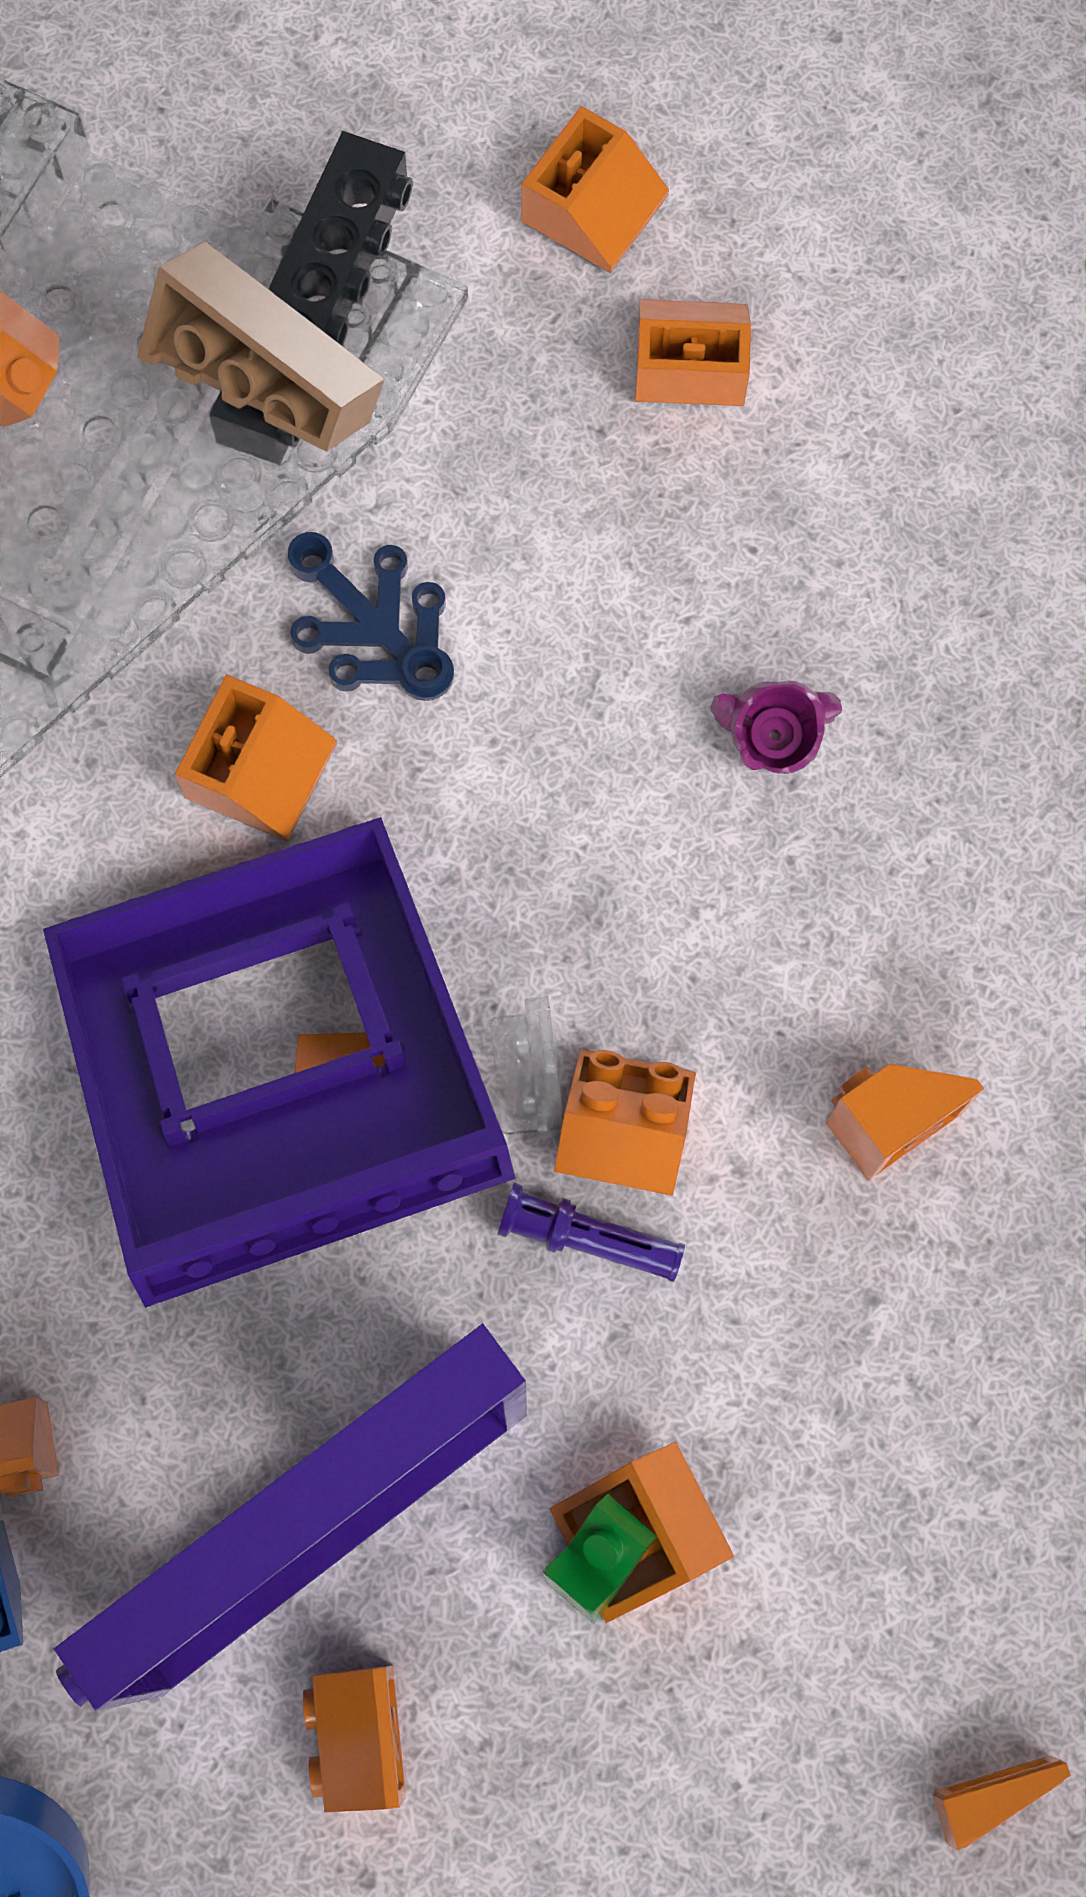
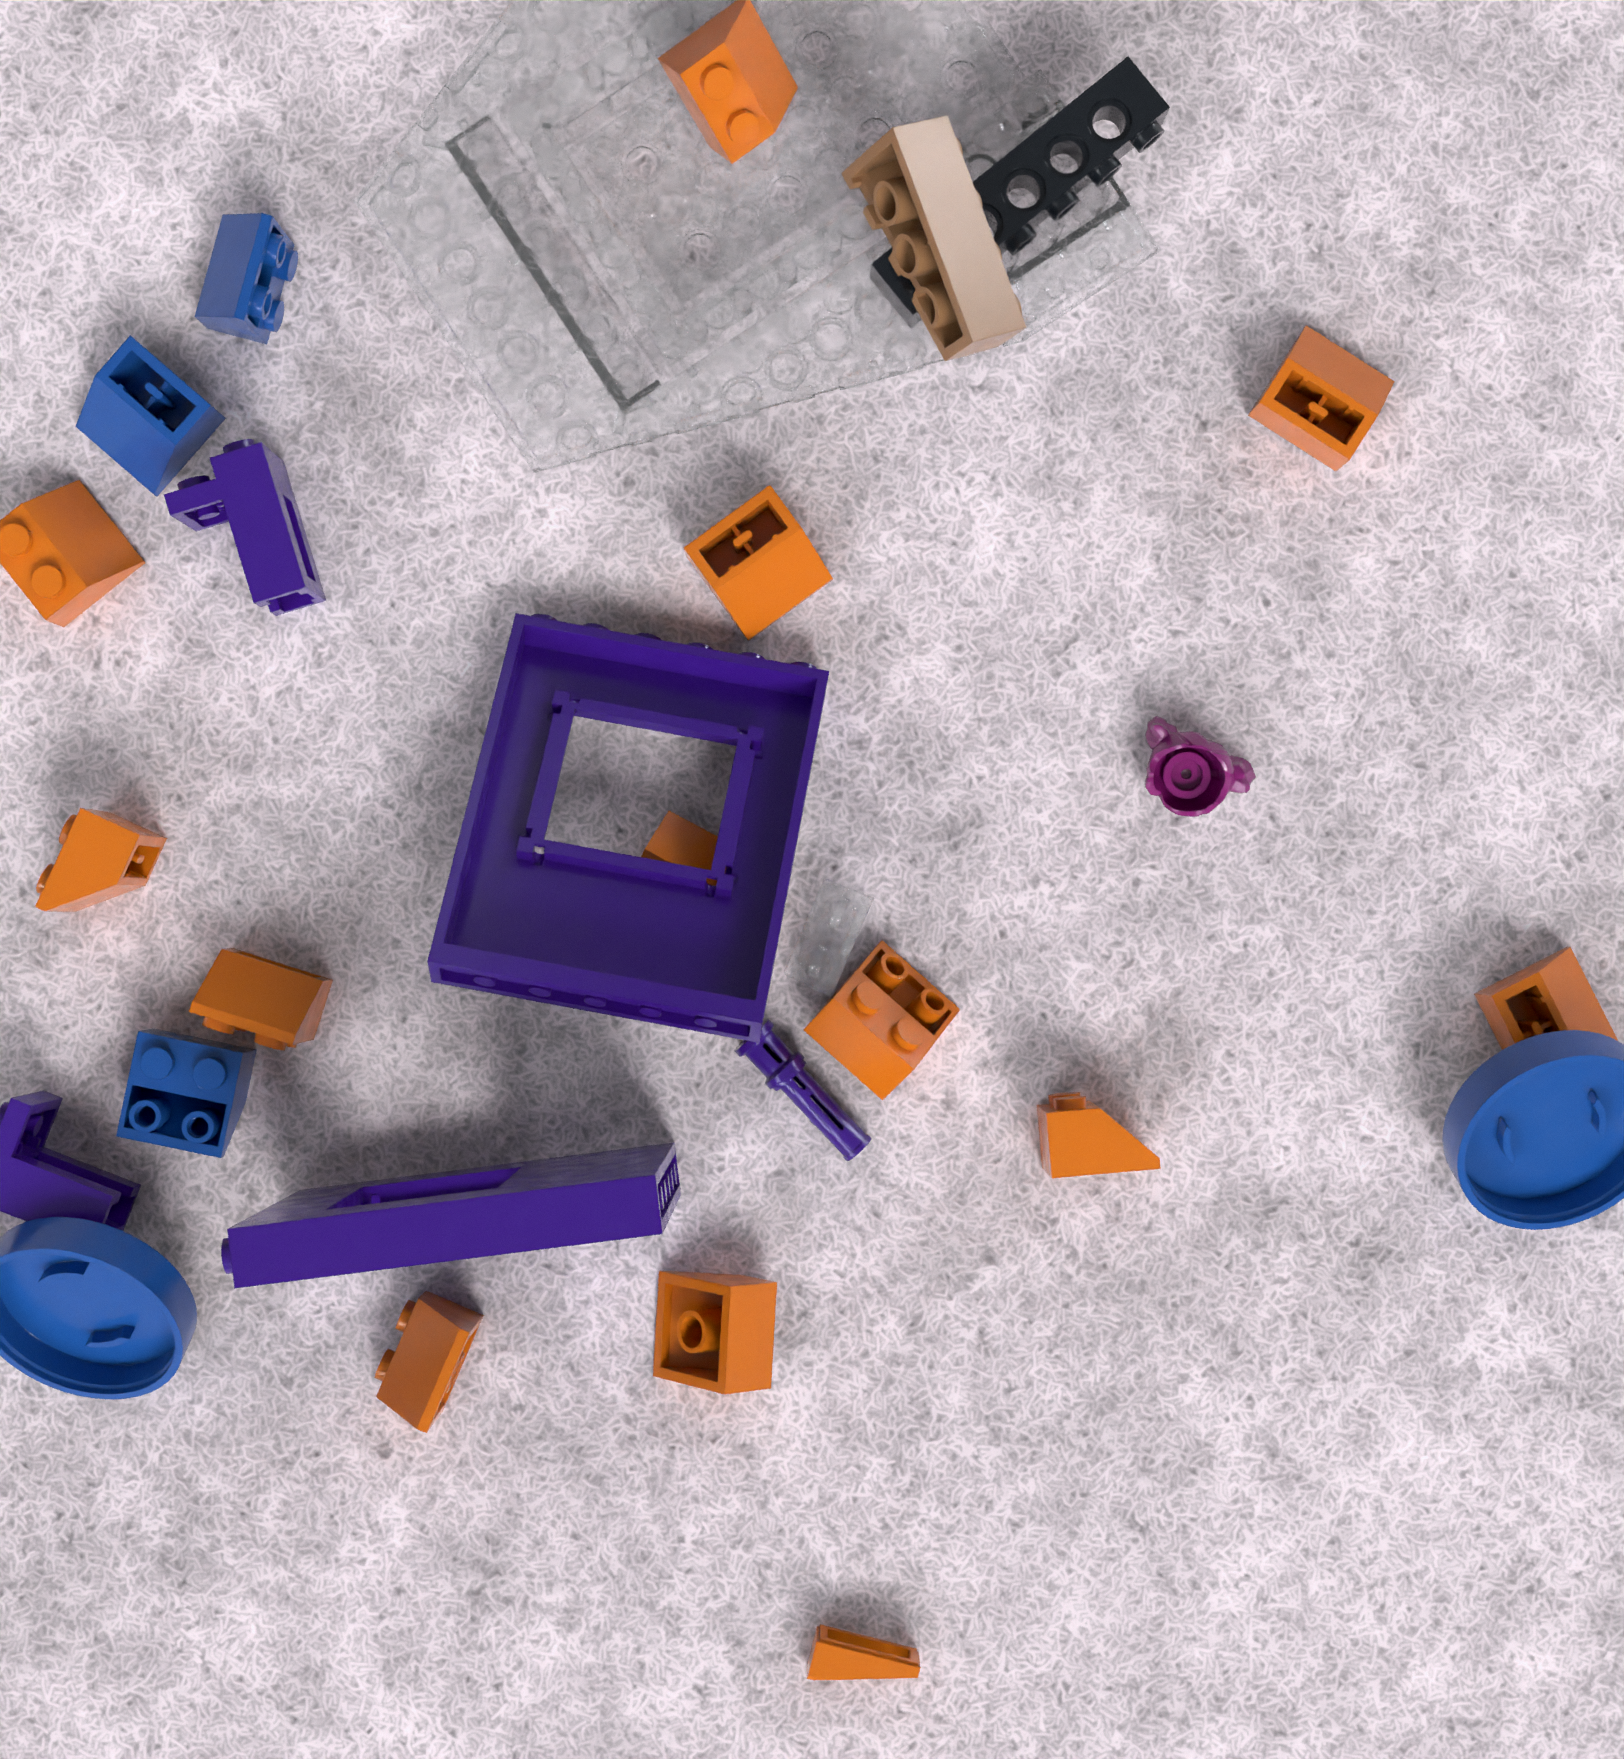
camera: 30 degrees right, 15 degrees up
(374, 624) = (920, 496): dark blue plant -> none
(592, 190) = (1325, 204): orange slope -> none
(599, 1558) = (670, 1336): green slope -> none

